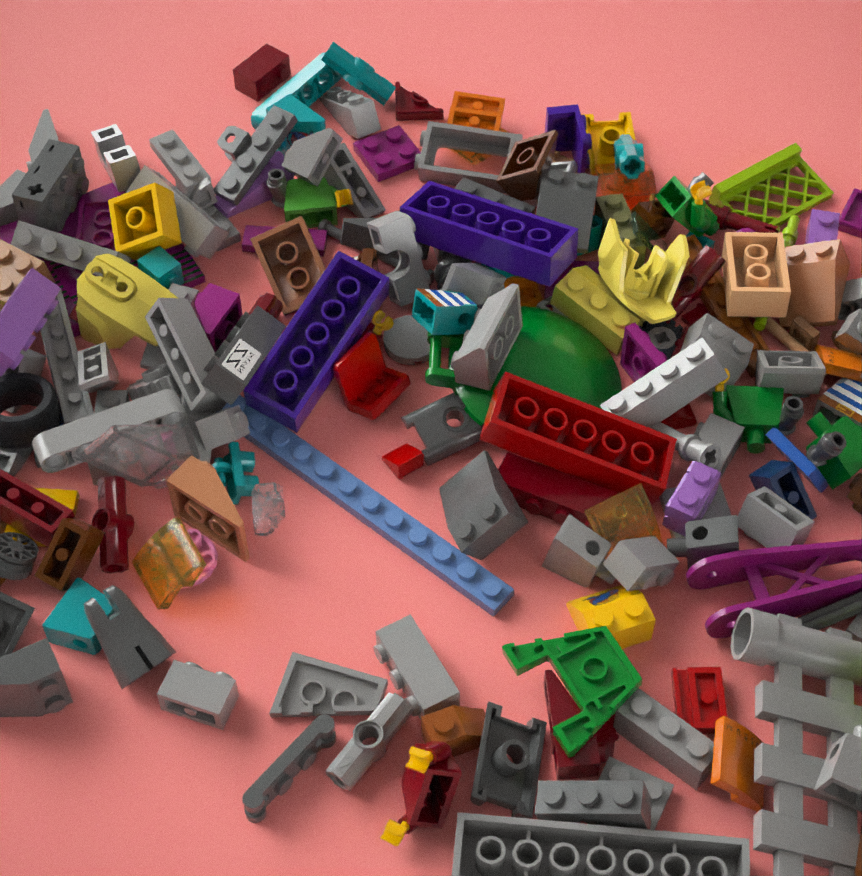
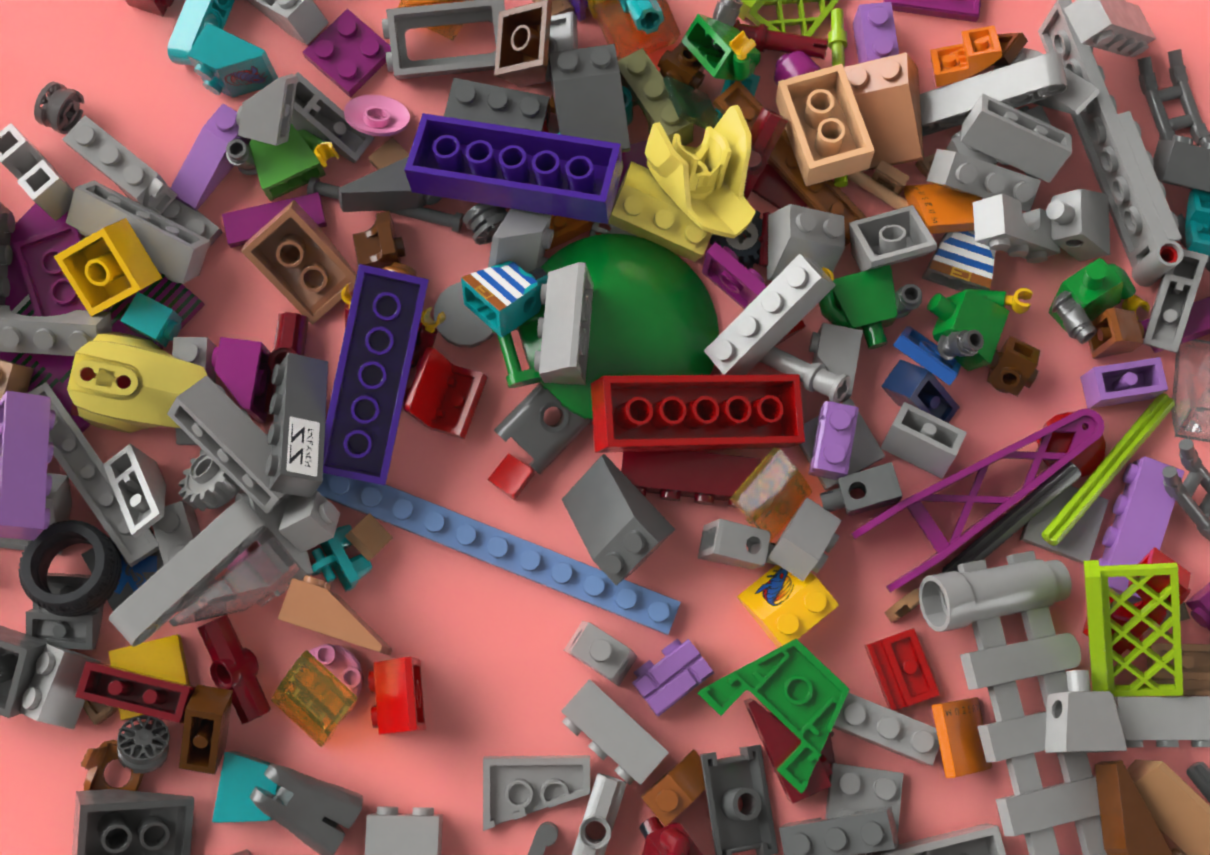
camera: 20 degrees left, 25 degrees up
(153, 126) = (59, 108): none -> dark grey wheel
(241, 583) = (398, 696): none -> red slope
(251, 153) = (194, 123): plate -> none
(265, 464) = (368, 537): none -> medium nougat tile
(267, 507) = (391, 592): clear rock -> none
(390, 192) = (376, 115): none -> bright pink dish
(394, 233) = (407, 207): light grey arch -> none
(426, 597) = (601, 652): none -> light grey torso
(480, 642) = (672, 676): none -> medium lavender brick
(716, 649) = (903, 606): none -> medium nougat tile

